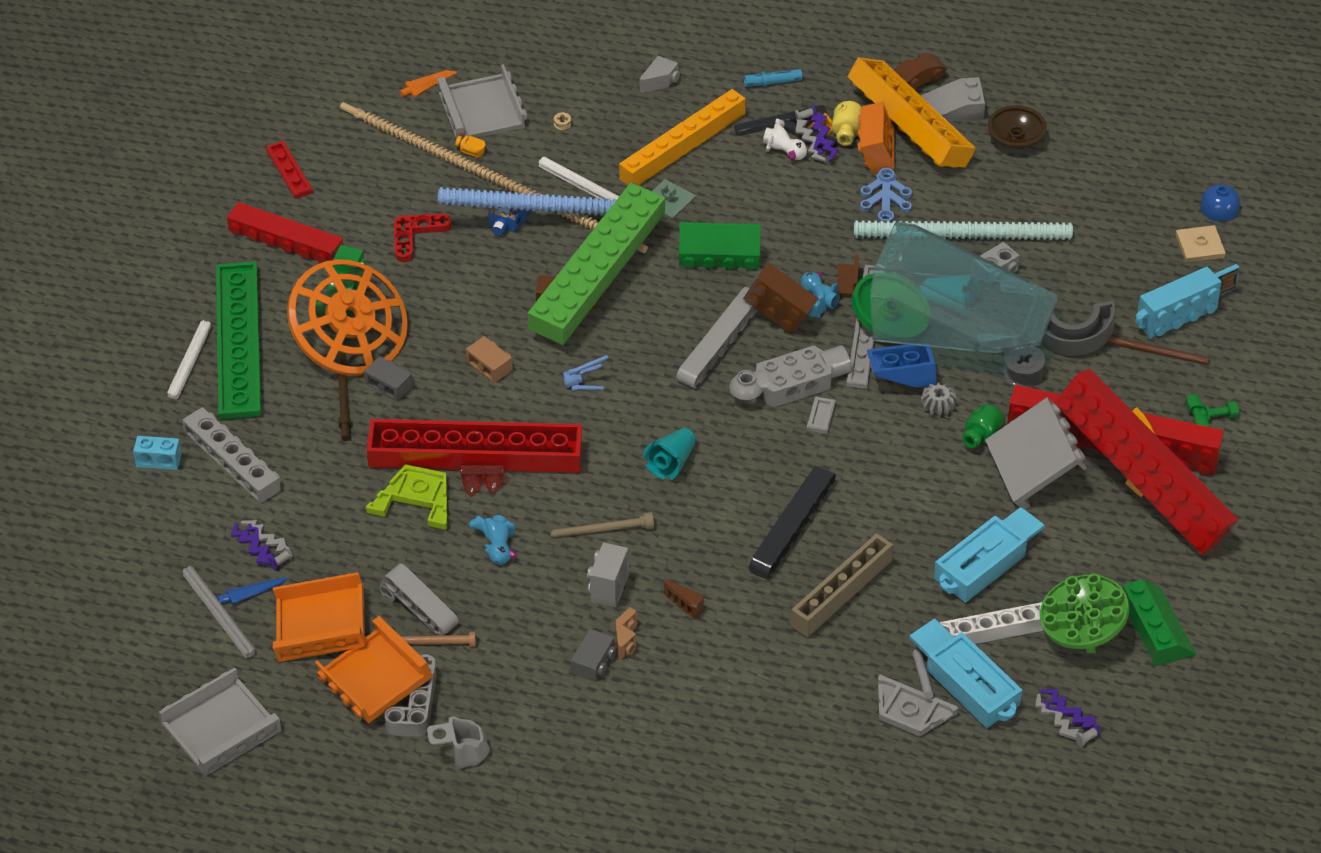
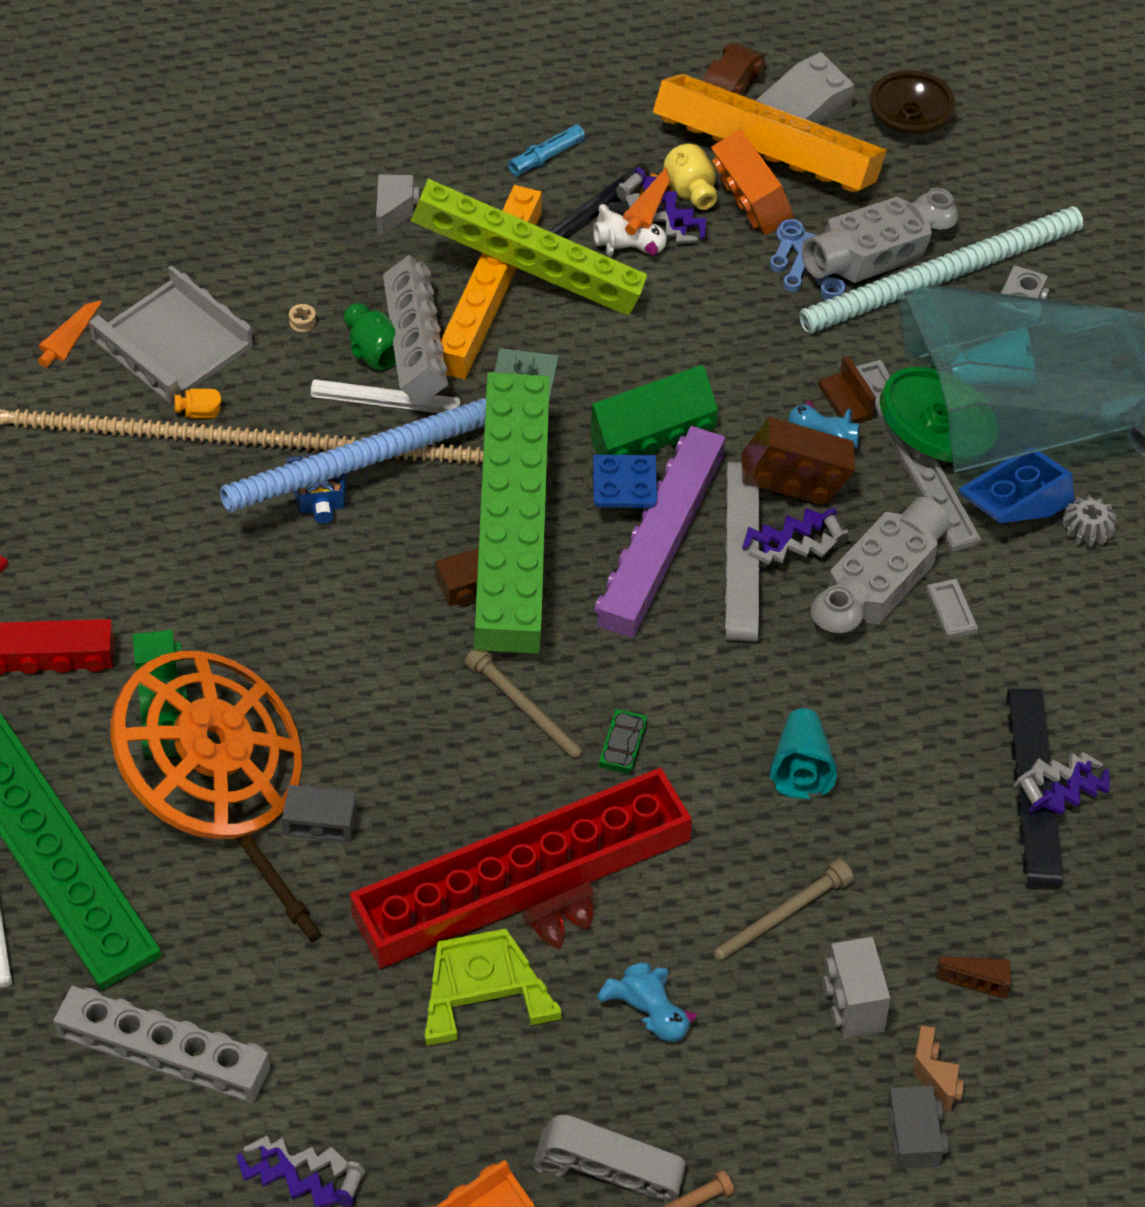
camera: 30 degrees left, 5 degrees up
(157, 452) = (44, 1093): medium azure brick -> none
(411, 227) = (194, 561): red beam -> none
(489, 359) = (446, 720): medium nougat brick -> none
(531, 340) = (482, 663): none -> dark tan piece
(573, 376) = (584, 696): medium blue plant -> none
(580, 408) = (623, 741): none -> tile
(593, 146) = (371, 336): none -> green piece
(614, 147) = (417, 334): none -> light grey brick
(677, 273) = (625, 481): none -> blue bracket
(681, 309) = (660, 533): none -> medium lavender brick
(709, 125) = (528, 247): none -> lime brick
(746, 340) = (785, 541): none -> piece
(800, 129) = (645, 207): none -> orange bar
(816, 523) = (1055, 799): none -> piece
(932, 196) = (878, 236): none -> light grey brick

